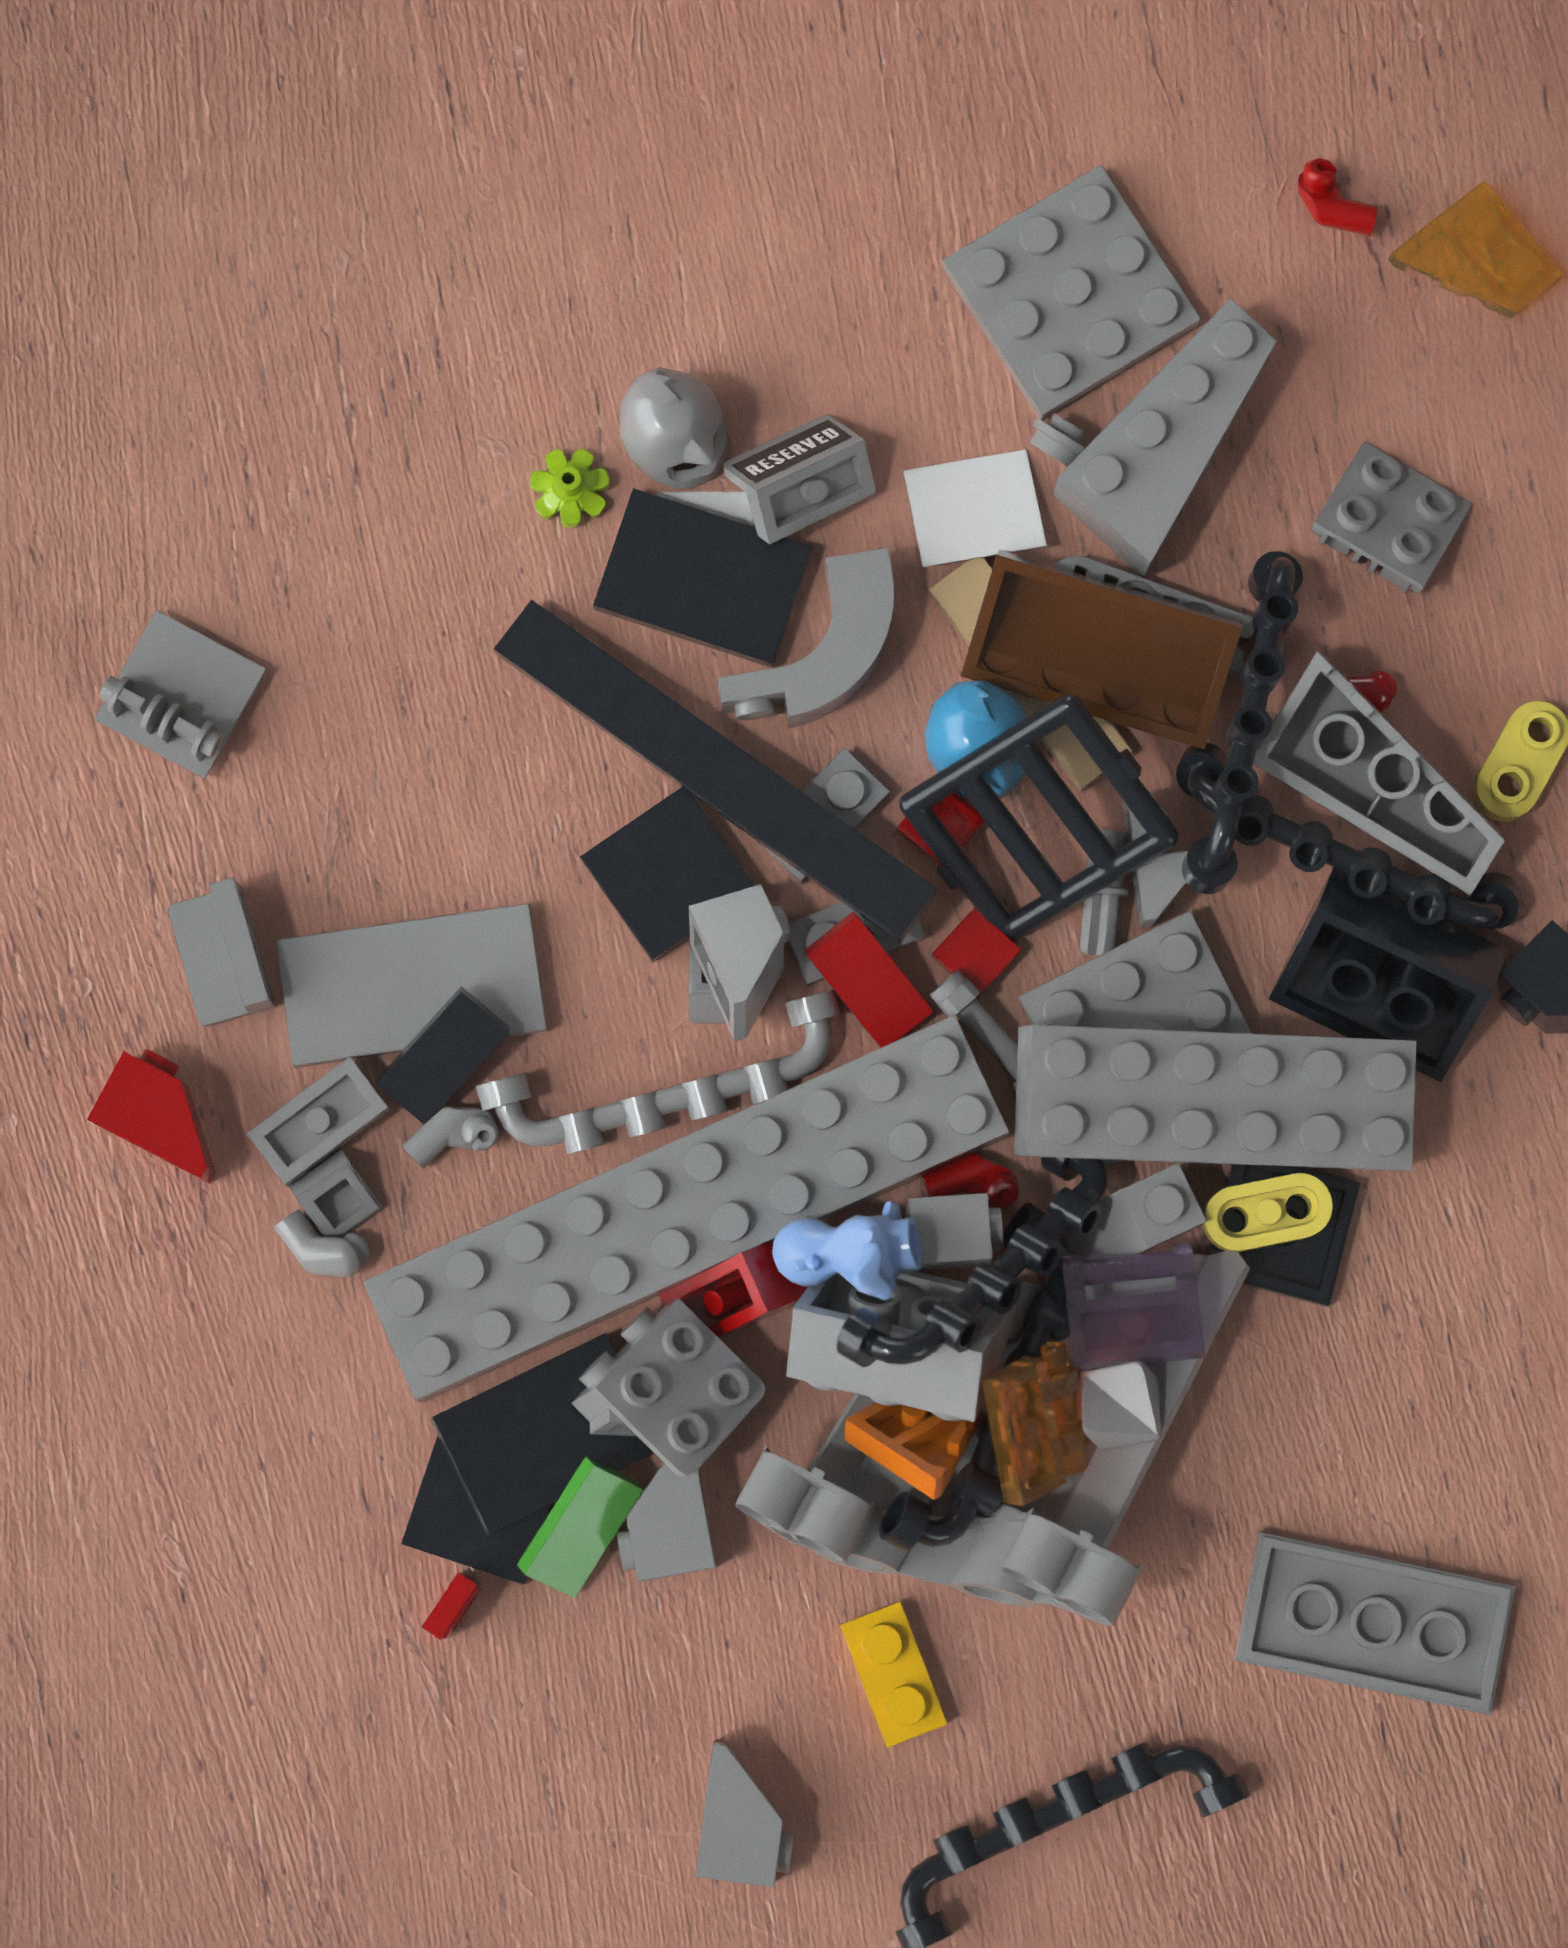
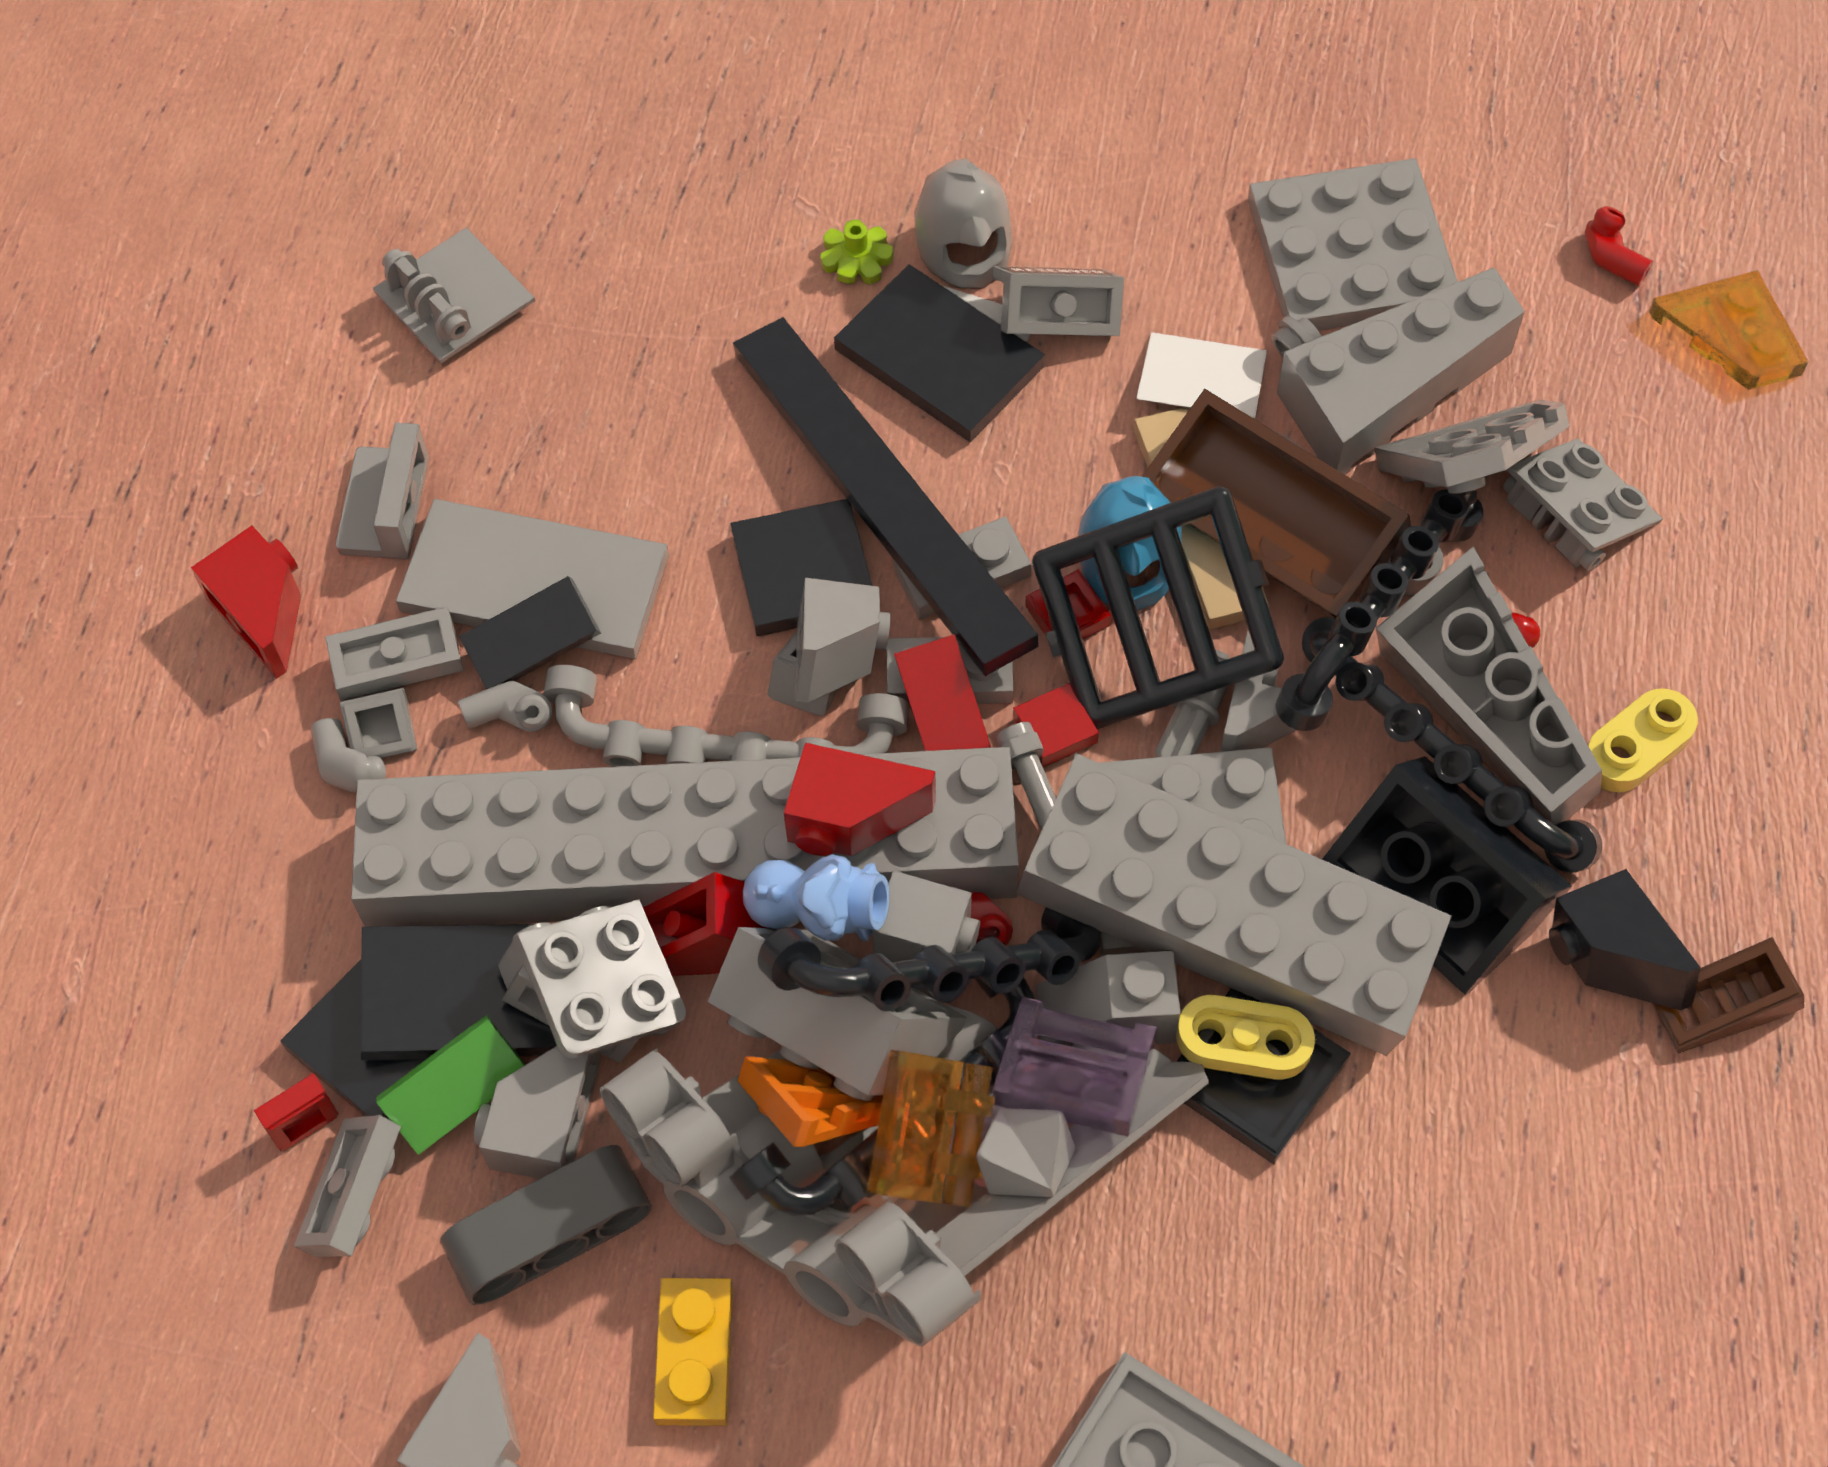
camera: 25 degrees right, 20 degrees down
(529, 1653) = (347, 1187): none -> light grey plate
(719, 1618) = (545, 1224): none -> dark grey beam
(828, 677) = (1025, 448): light grey arch -> none
(840, 1143) = (853, 800): none -> red slope
(1278, 516) = (1474, 448): none -> light grey plate

